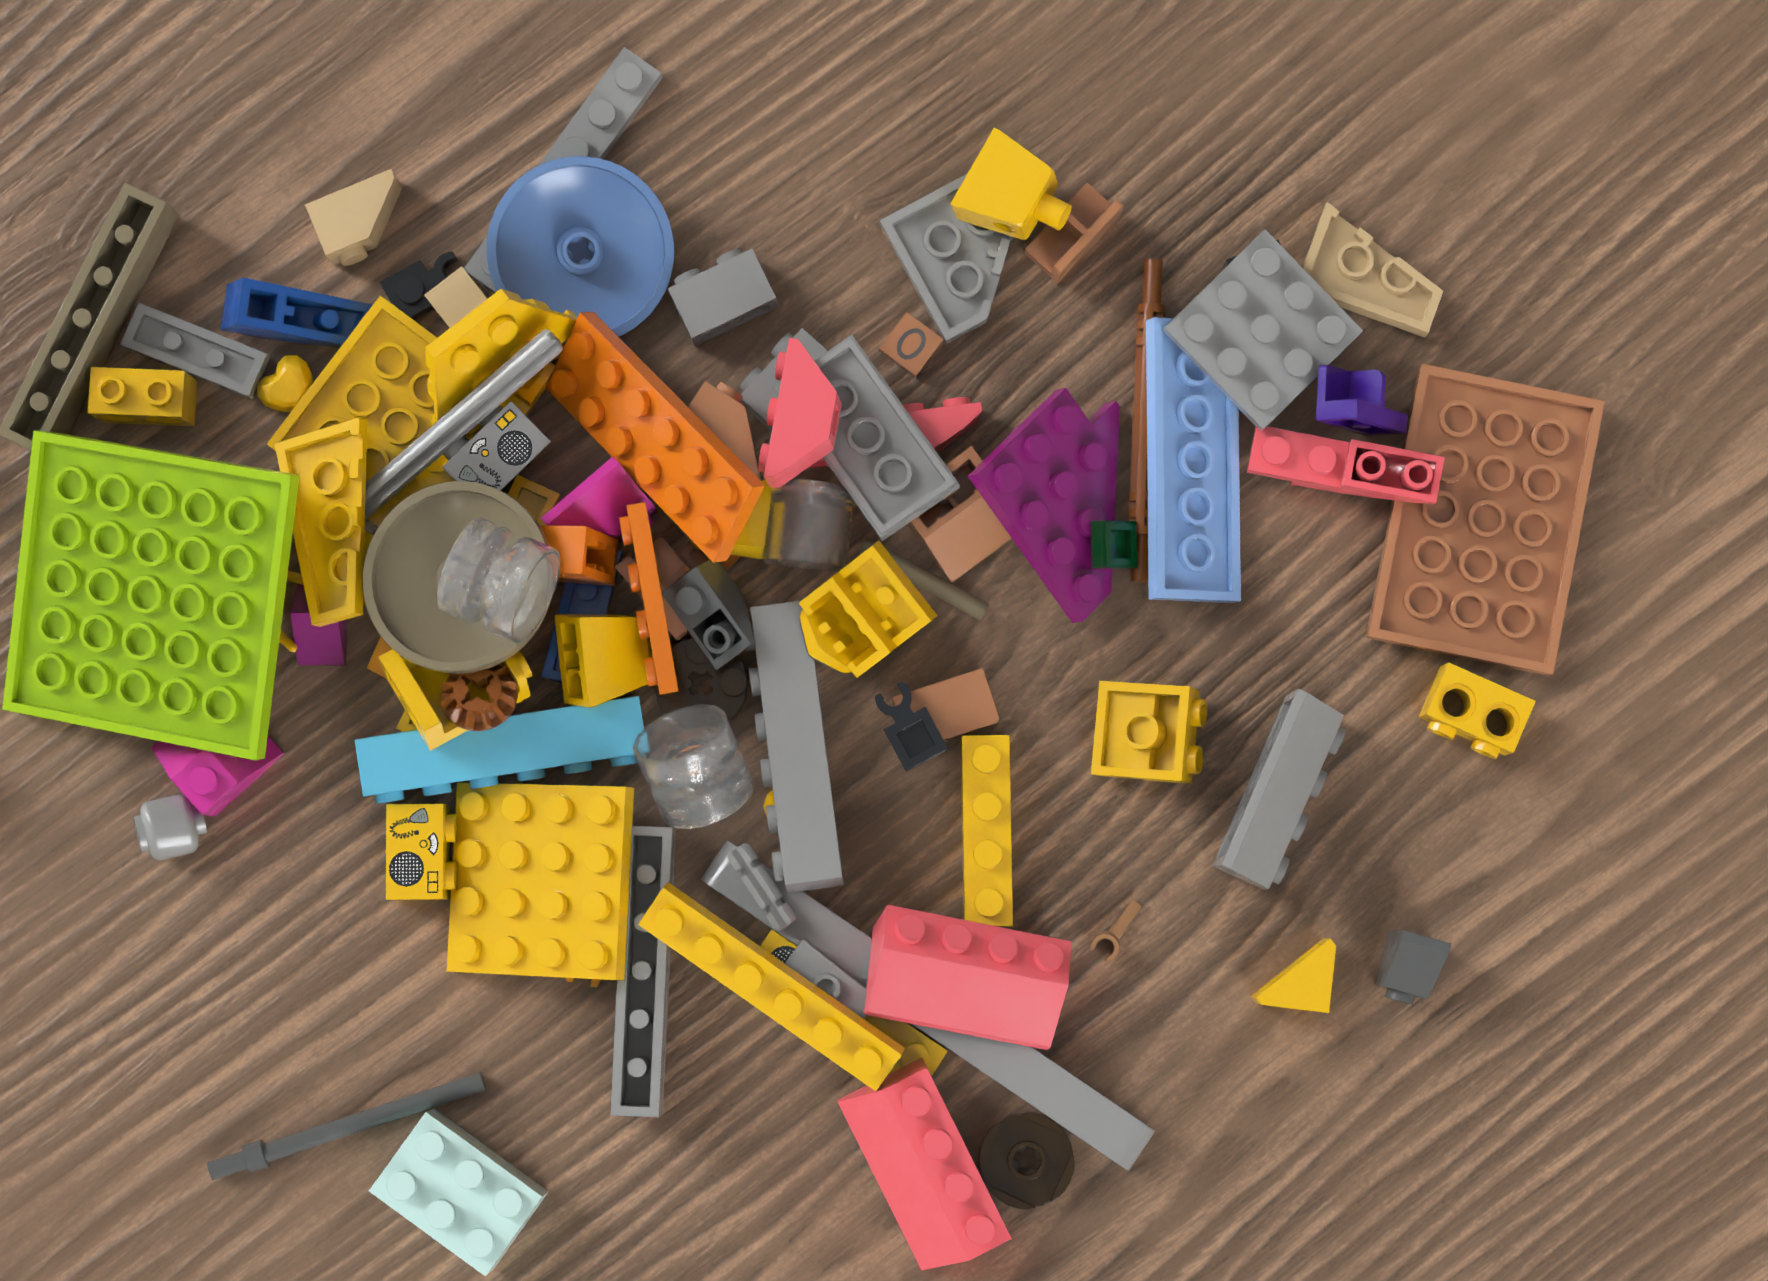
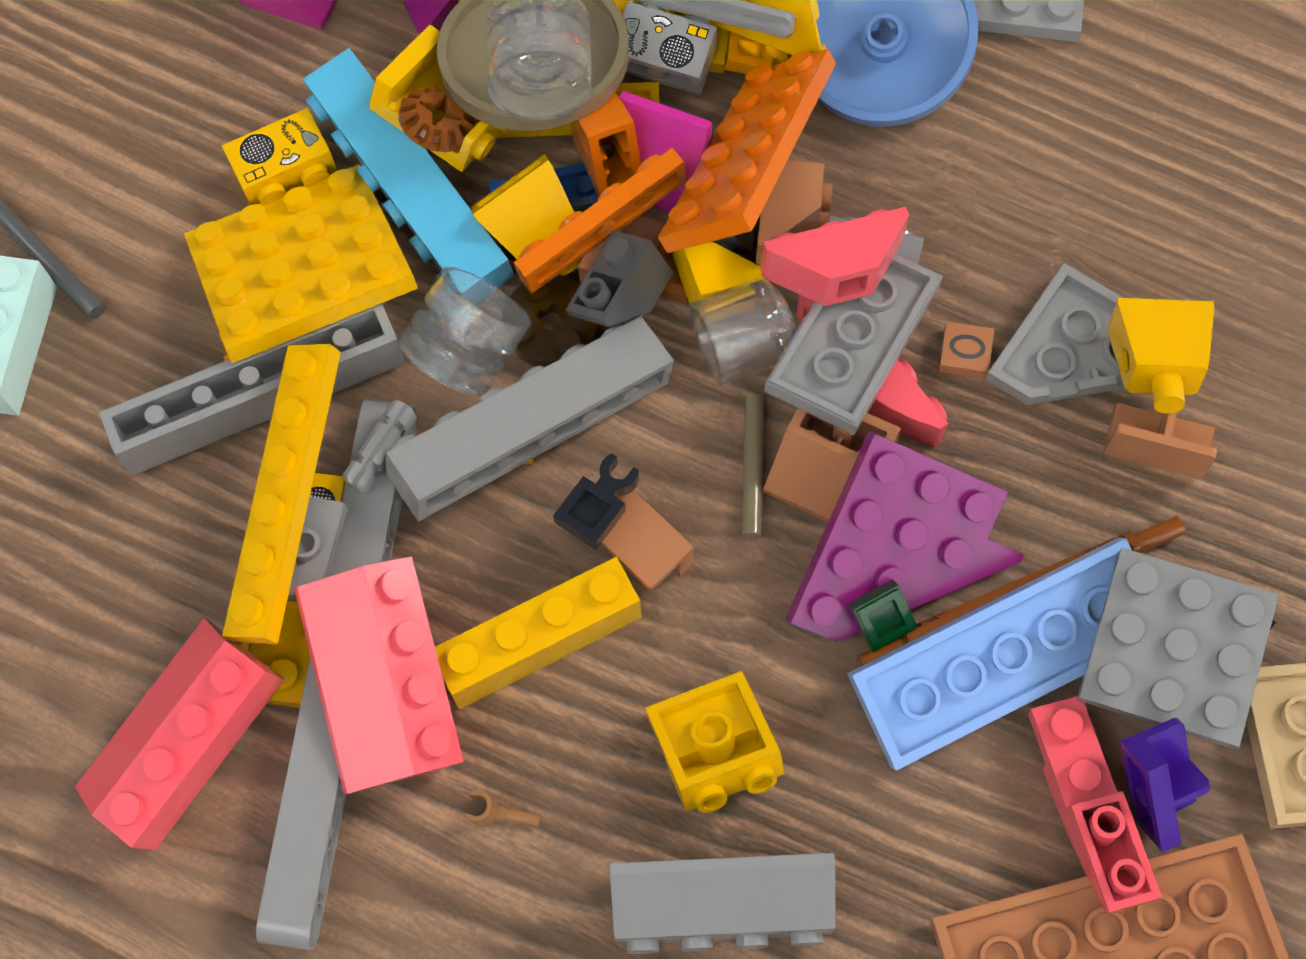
camera: 65 degrees right, 15 degrees down
(722, 295) = (913, 169): light grey brick -> none
(862, 613) = (686, 408): yellow piece -> none
(1034, 1187) = (205, 813): dark brown plate -> none

